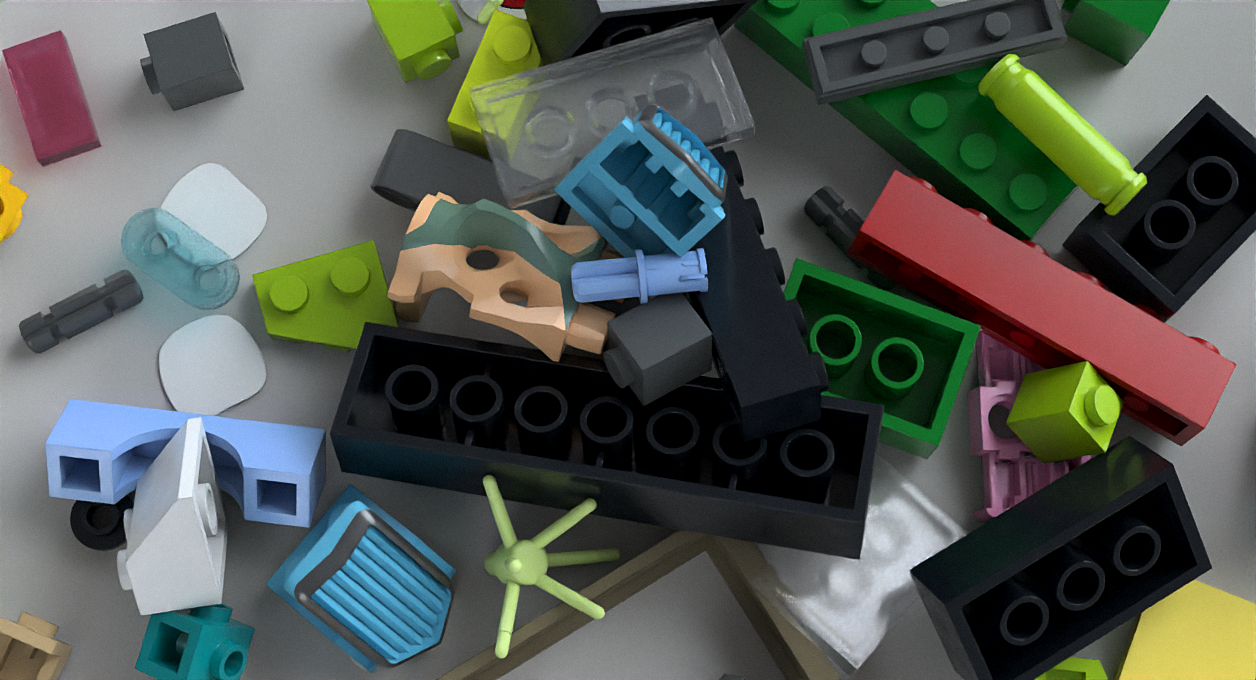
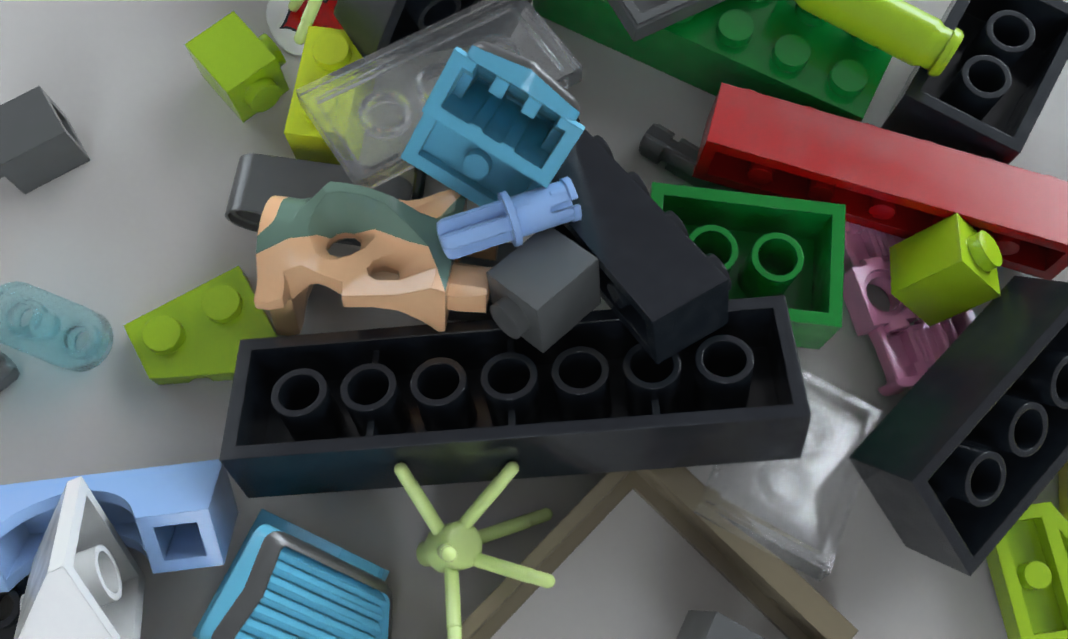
camera: 15 degrees left, 5 degrees down
(211, 365) = (100, 424): white sticker -> none
(217, 208) = (82, 272): white sticker -> none

